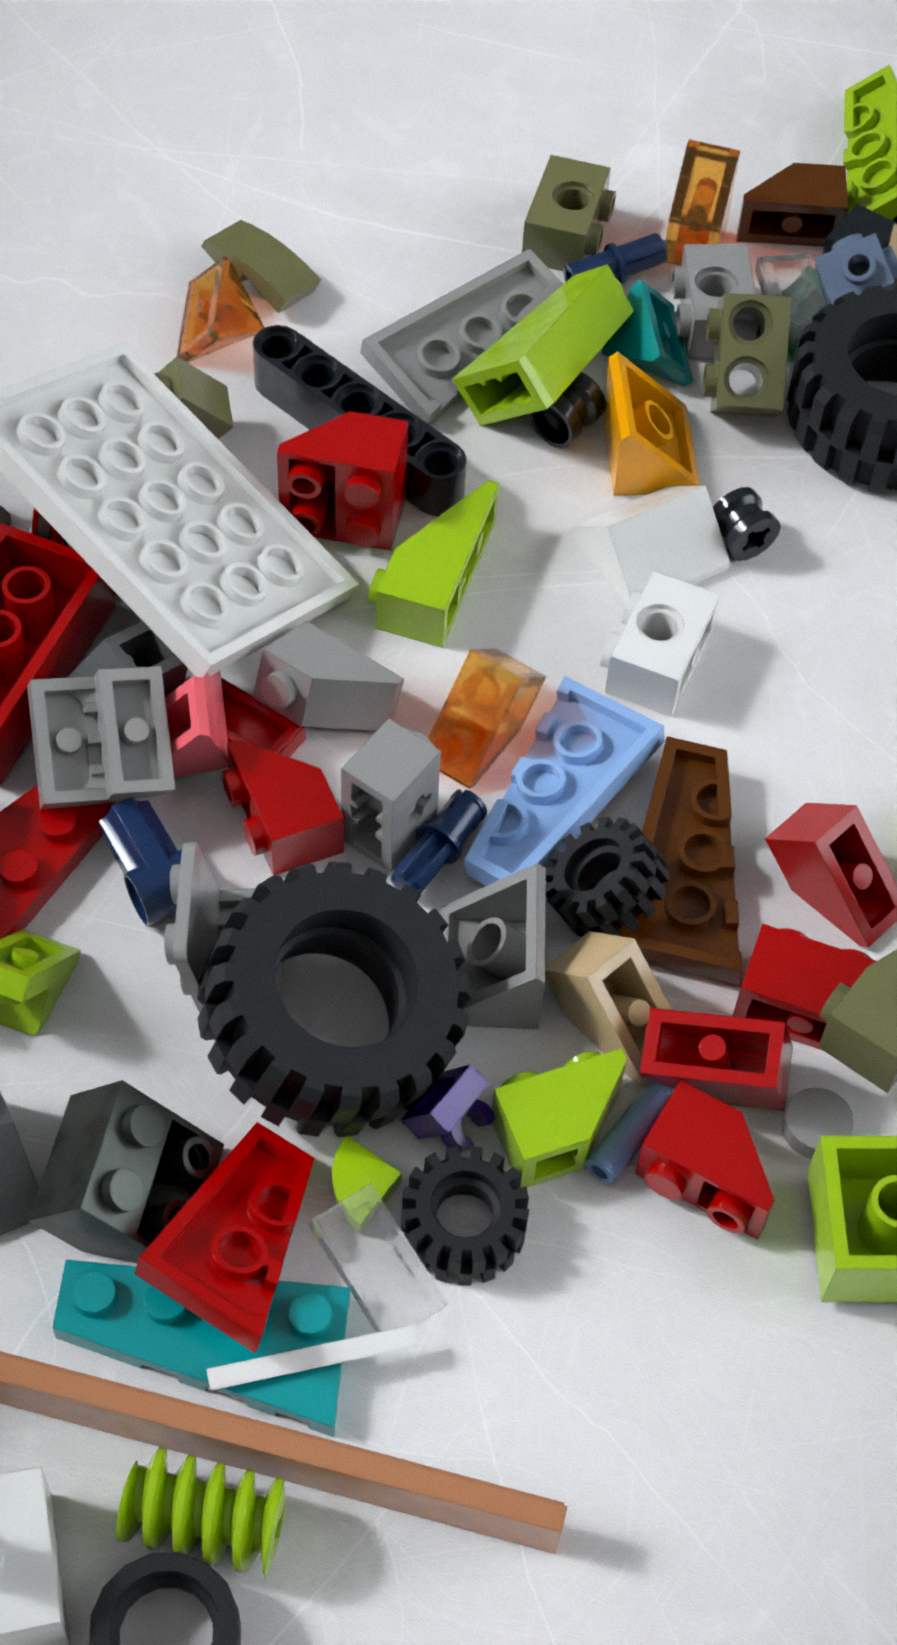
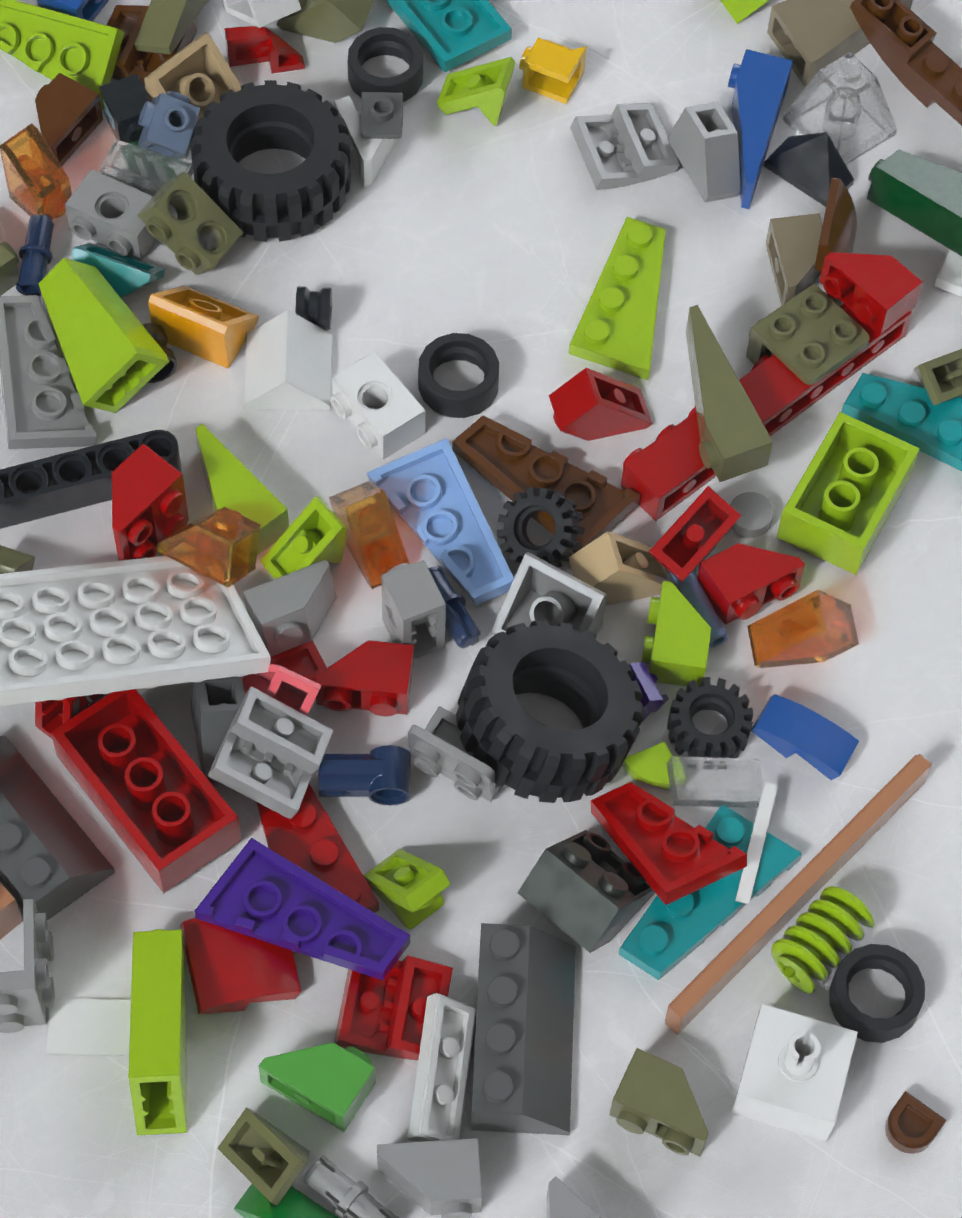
camera: 60 degrees left, 5 degrees up
(346, 570) = (216, 546): none -> clear orange slope
(423, 655) = (310, 539): none -> lime slope
(517, 1346) = (800, 730): none -> blue slope
(678, 1270) = (803, 632): none -> clear orange slope
(778, 669) = (464, 348): none -> black tyre

